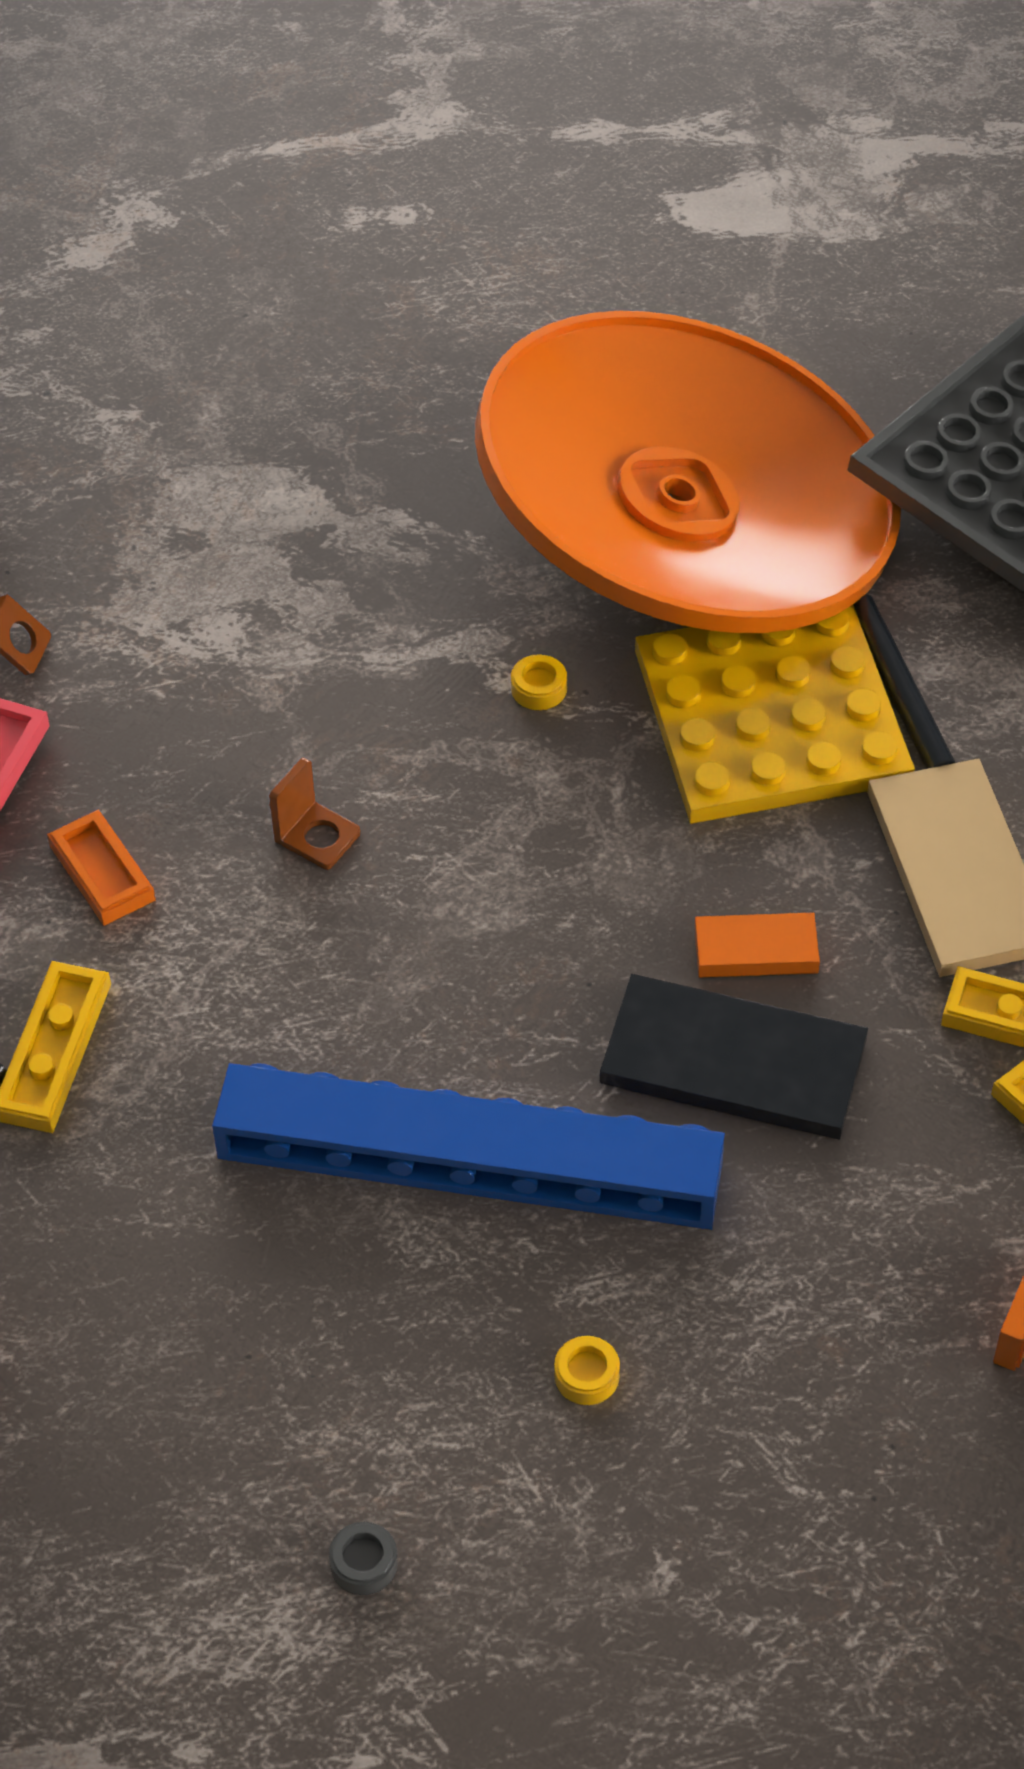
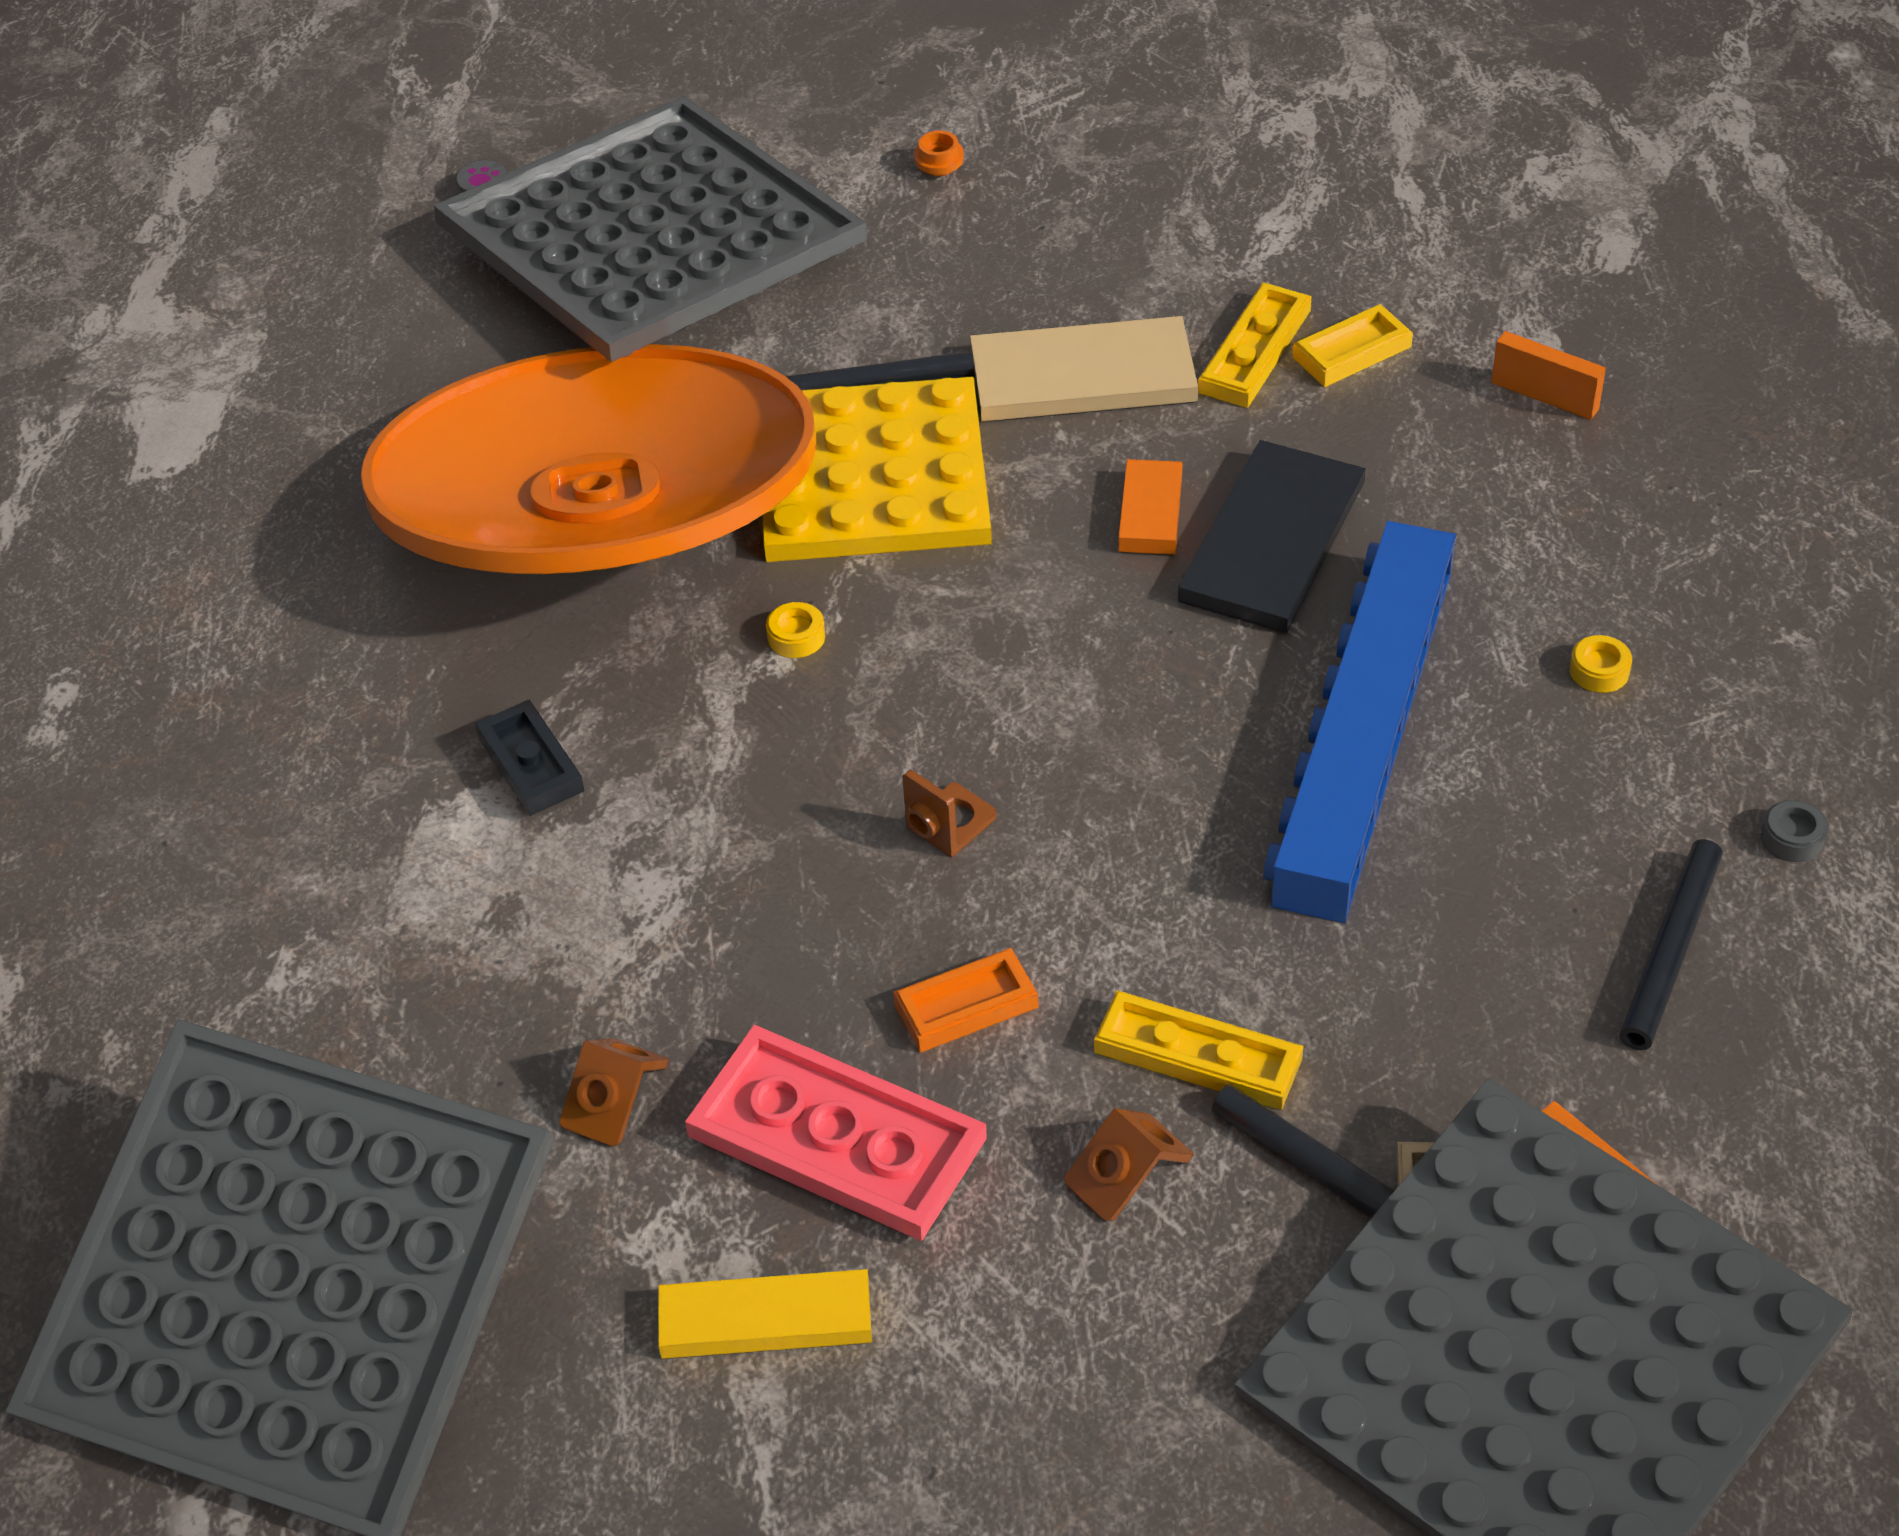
camera: 80 degrees left, 5 degrees down
(199, 1436) = (1671, 945): none -> black piece
(346, 516) = (530, 757): none -> black plate

